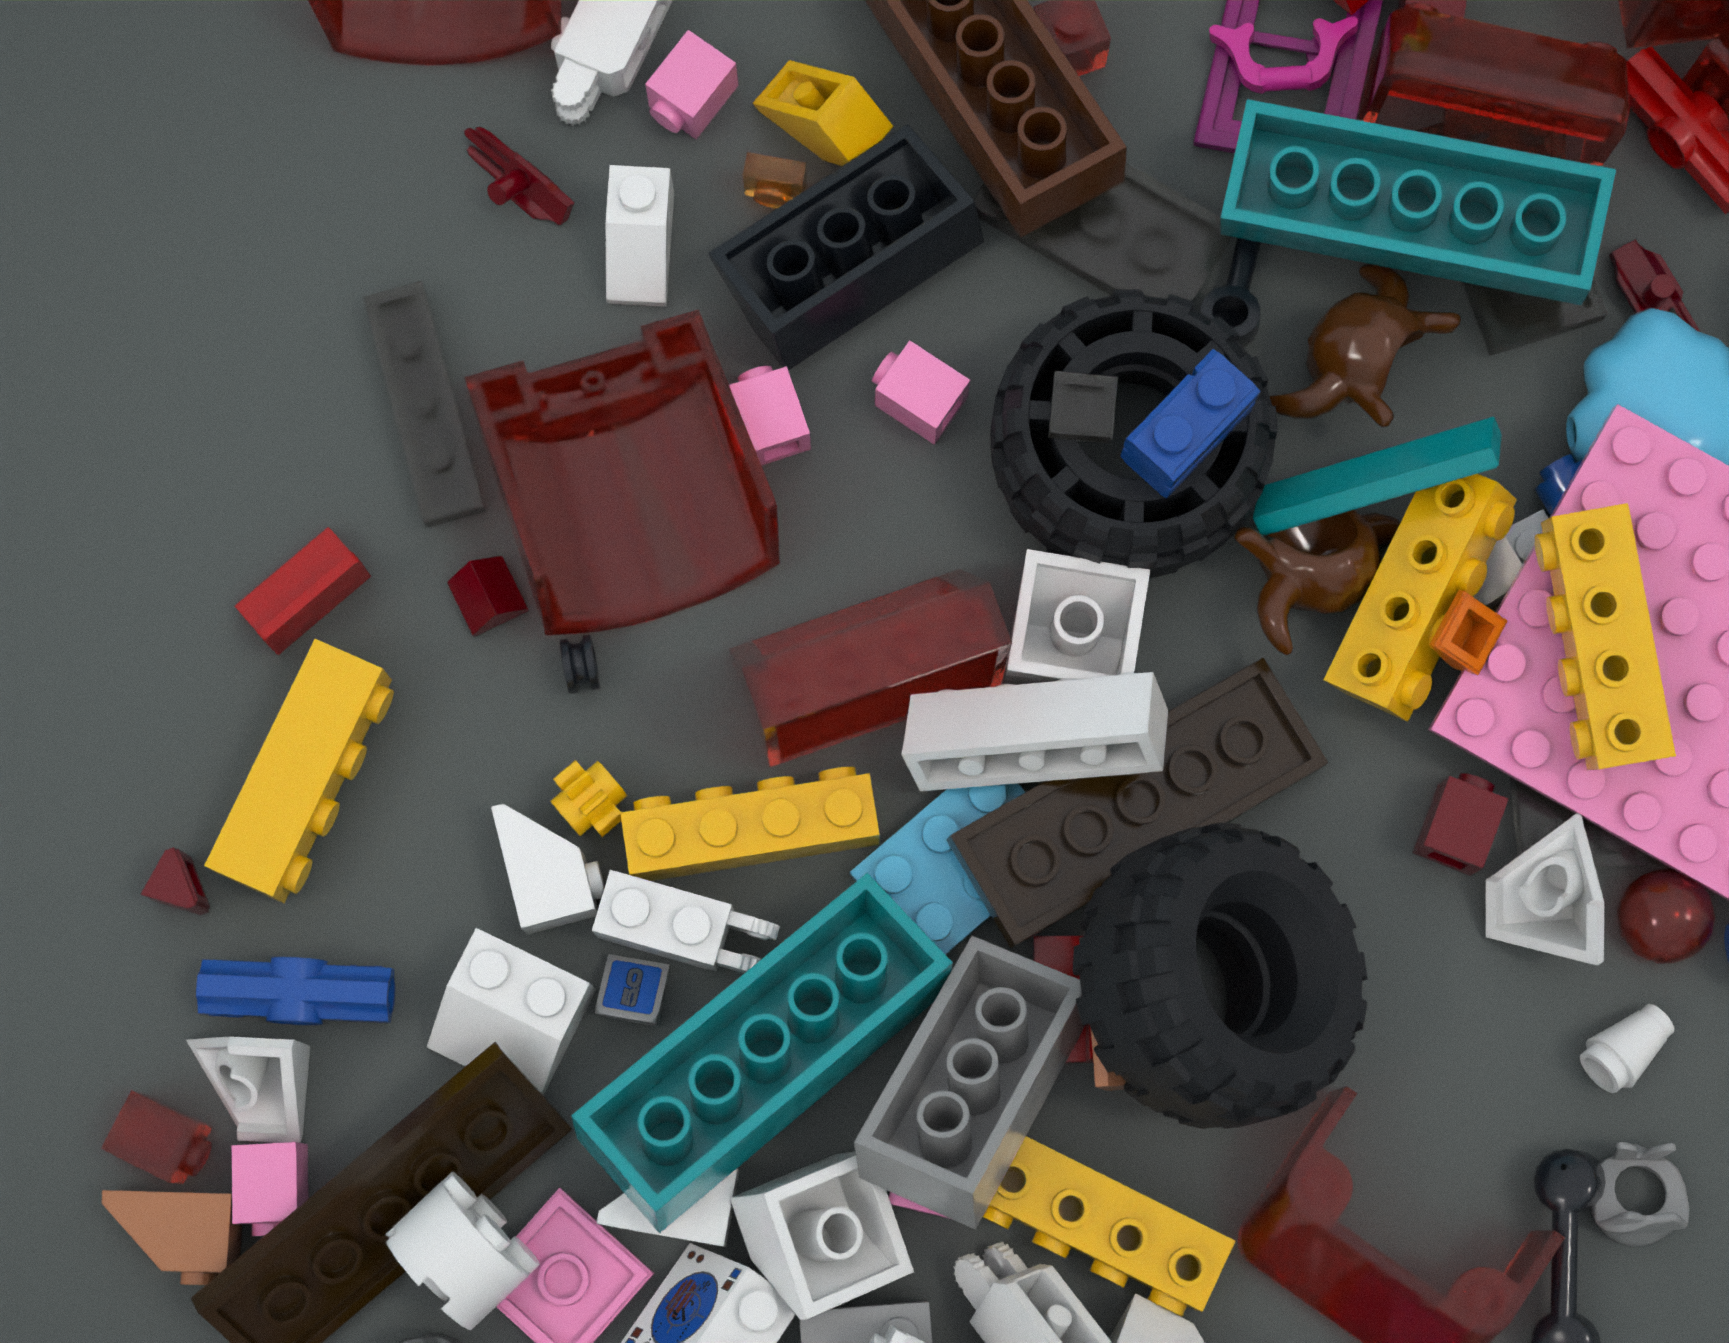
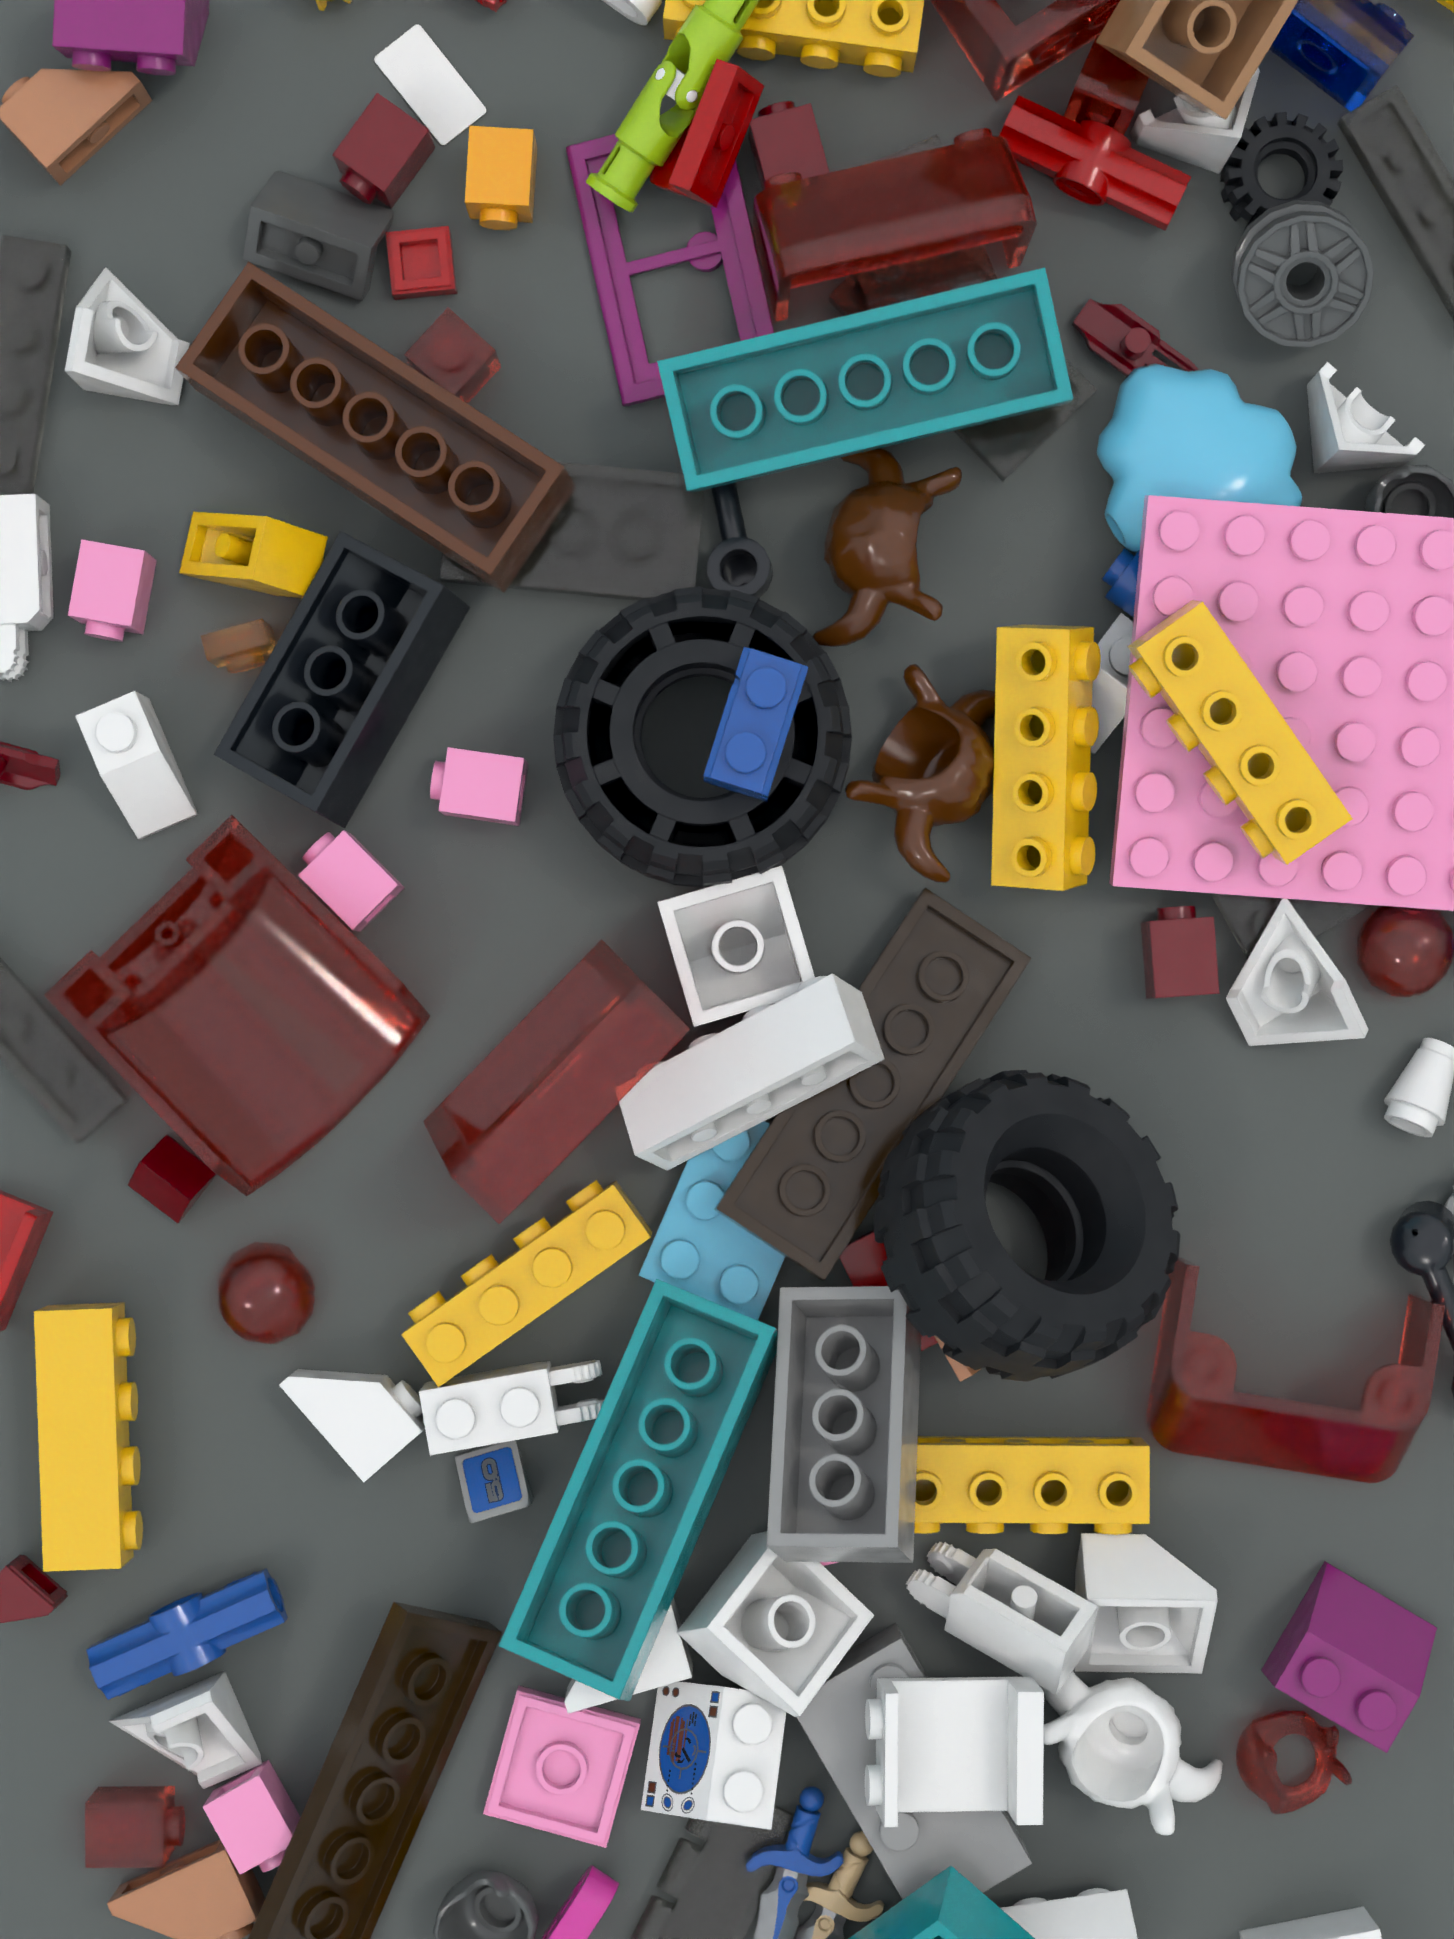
camera: 30 degrees left, 10 degrees up
(461, 1251) = (458, 1802): white brick -> none
(511, 1001) = (390, 1552): white slope -> none
(517, 731) = (265, 1293): none -> clear red hair
(579, 664) = (292, 1204): black bush -> none
(588, 798) = (364, 1327): yellow gear -> none
(1082, 407) = (646, 752): clear smoke tile -> none
(1308, 76) = (681, 301): dark pink helmet -> none
(1379, 476) = (955, 672): teal tile -> none
(1467, 633) = (1106, 783): orange slope -> none

